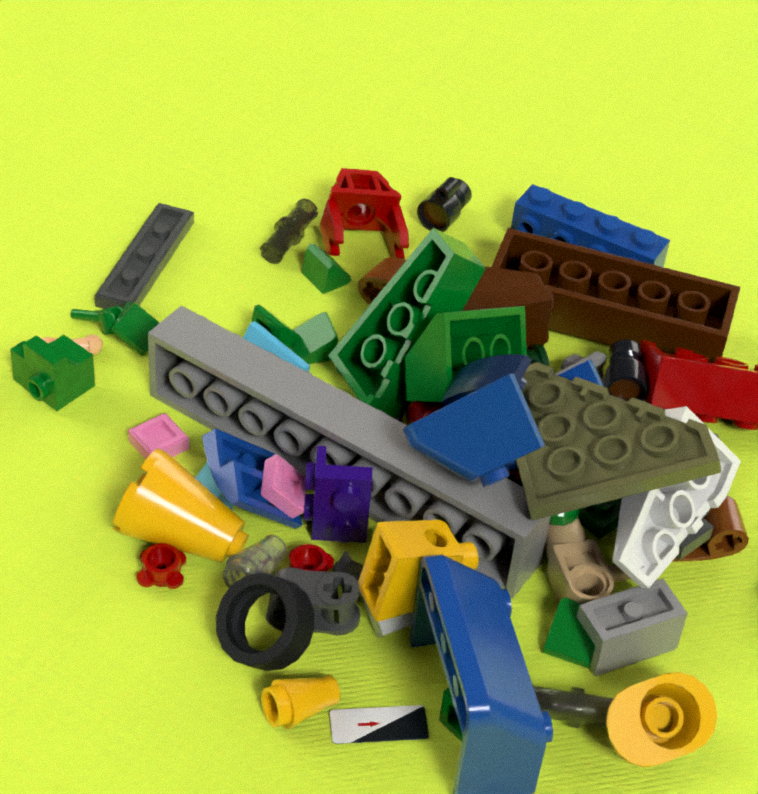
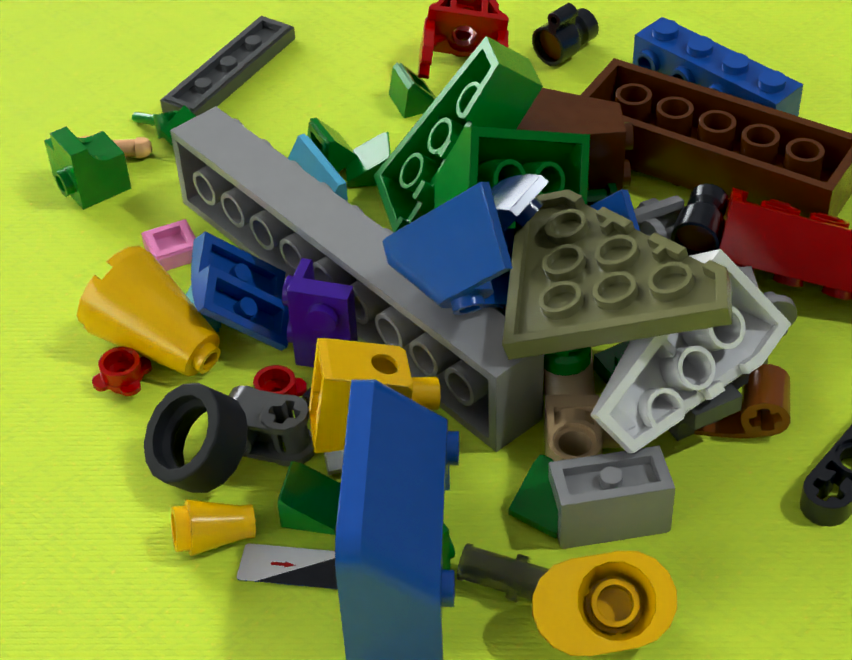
camera: 20 degrees right, 0 degrees up
(257, 558) = (223, 373): clear cone -> none
(283, 486) = (264, 302): bright pink tile -> none
(288, 231) = (385, 51): clear smoke pin -> none
(377, 664) = (308, 500): none -> green slope

